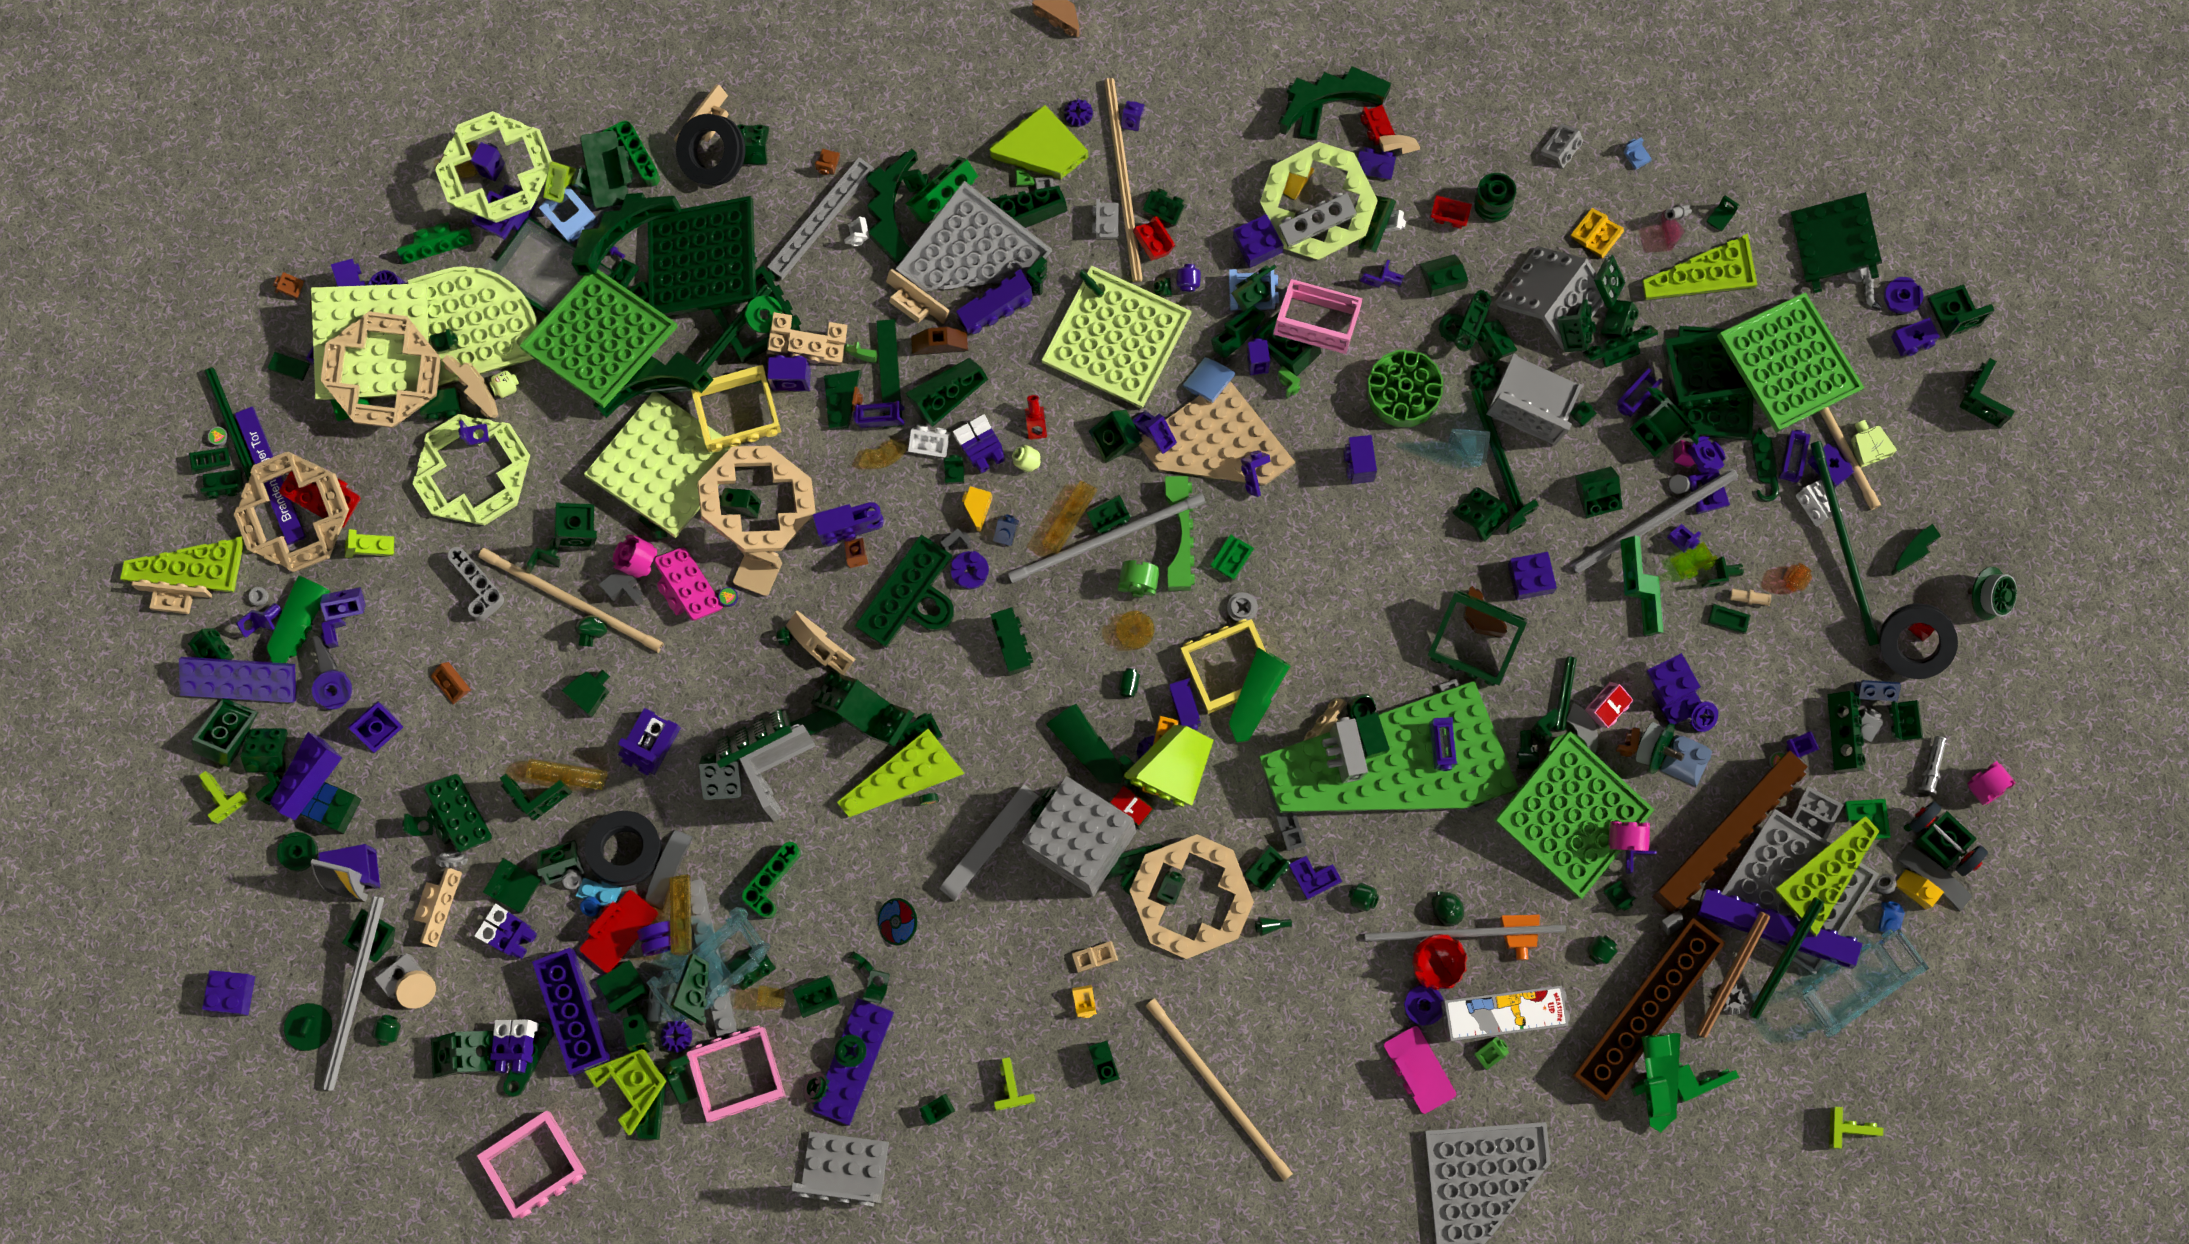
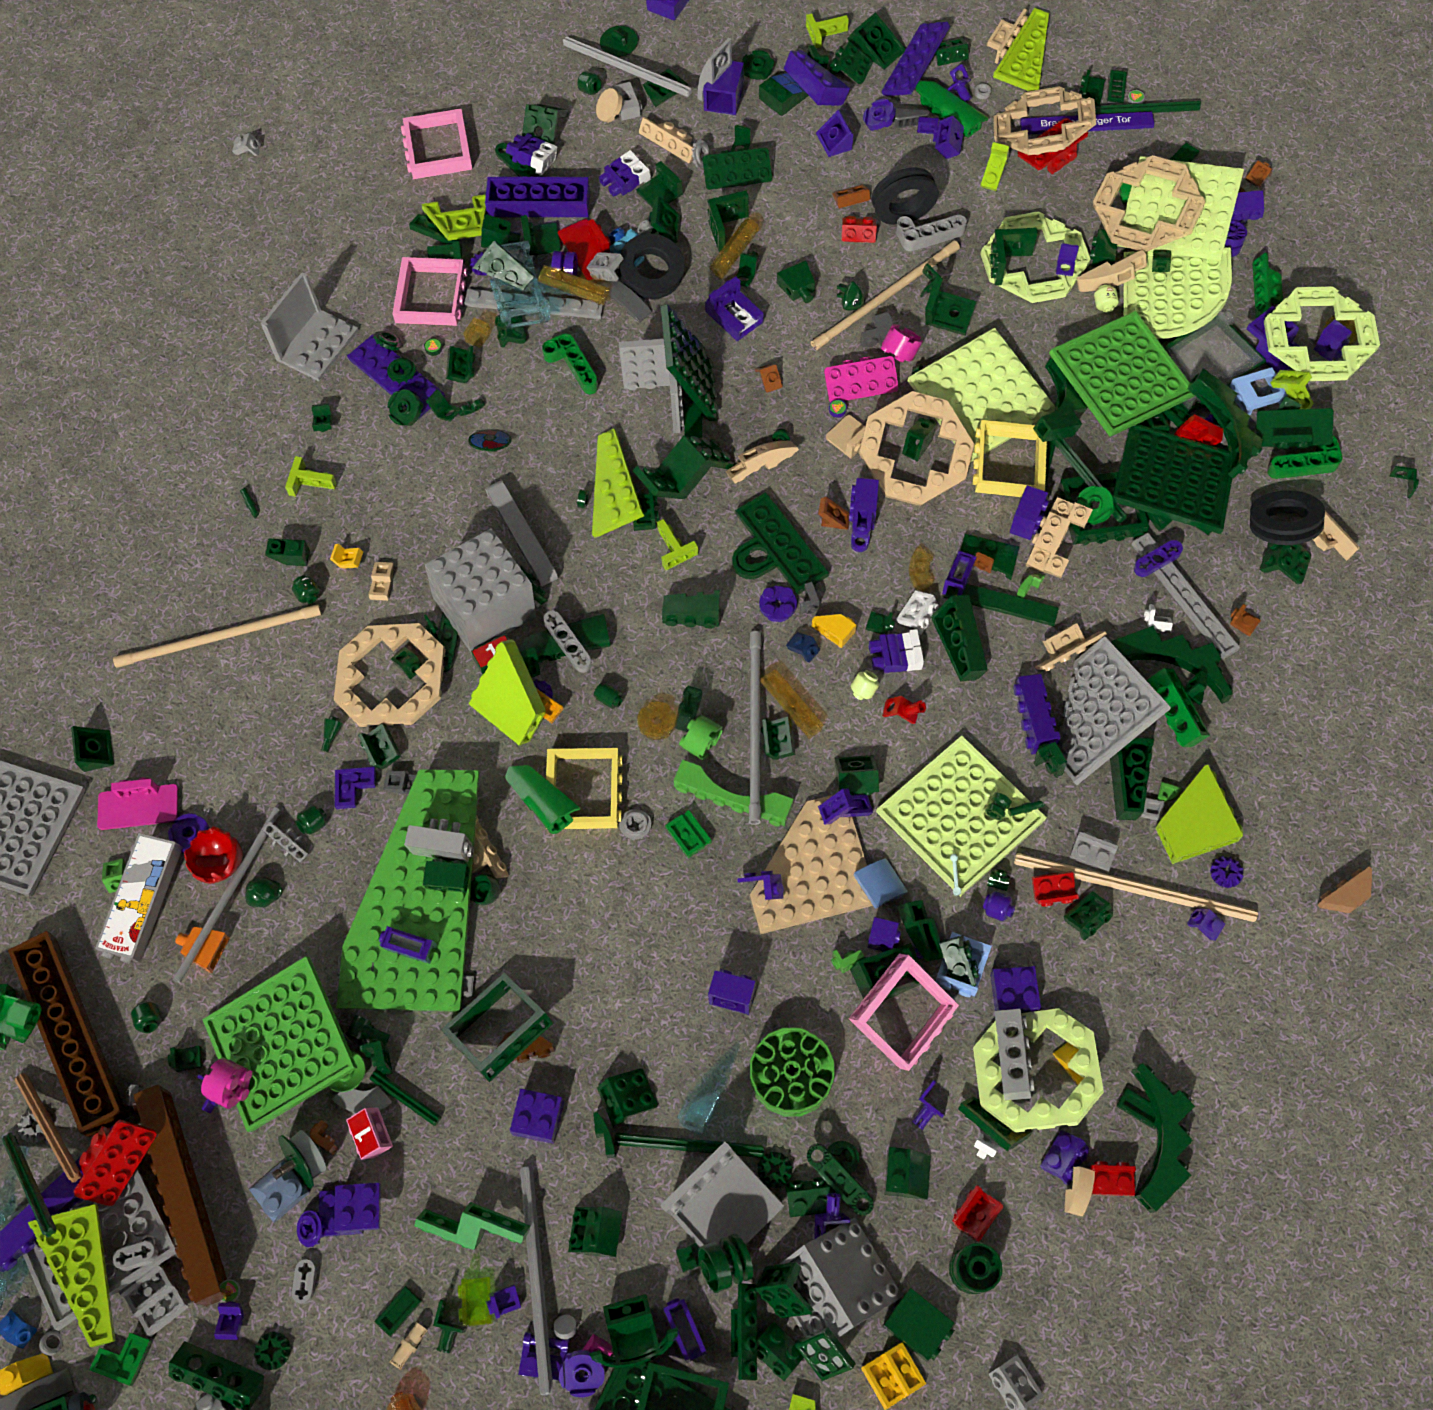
camera: 110 degrees right, 10 degrees down
(451, 612) = (902, 181): none -> black tyre
(493, 497) = (1005, 246): none -> dark green bracket
(494, 656) = (859, 229): none -> red bracket
(587, 750) = (747, 267): none -> dark green bracket
(623, 58) = (1411, 474): none -> dark green bracket
(638, 252) = (1200, 431): none -> red slope
(644, 892) = (604, 265): none -> light grey bracket
(714, 675) = (770, 377): none -> dark orange bracket
(797, 256) = (1154, 565): none -> dark purple beam
(802, 1039) = (433, 347): none -> tile
(882, 1027) = (413, 411): none -> dark green plate
(939, 341) = (1015, 654): reddish brown slope -> none
(947, 688) = (678, 552): none -> lime bracket
(1061, 1137) = (249, 502): none -> dark green piece
(1095, 740) = (569, 640): none -> light grey beam
(1101, 304) = (998, 806): none -> dark green wheel
(1118, 600) = (688, 707): none -> clear green brick
(1136, 1023) = (305, 589): none -> dark green head
(1185, 704) = (563, 734): dark purple window -> none
(1190, 315) = (956, 891): none -> light aqua hinge
(1383, 1144) = (92, 748): none -> dark green slope
(1391, 919) = (284, 836): none -> light grey piece
(1506, 317) = (831, 1216): none -> dark purple bracket
(1553, 225) = (919, 1325): none -> dark green brick
(1580, 375) = (725, 1263): none -> dark green wheel
(1739, 894) = (112, 1161): none -> red bracket
(1745, 707) = (299, 1280): none -> light grey beam
(1799, 834) = (136, 1259): none -> light grey beam
(1804, 711) = (280, 1357): none -> dark green gear

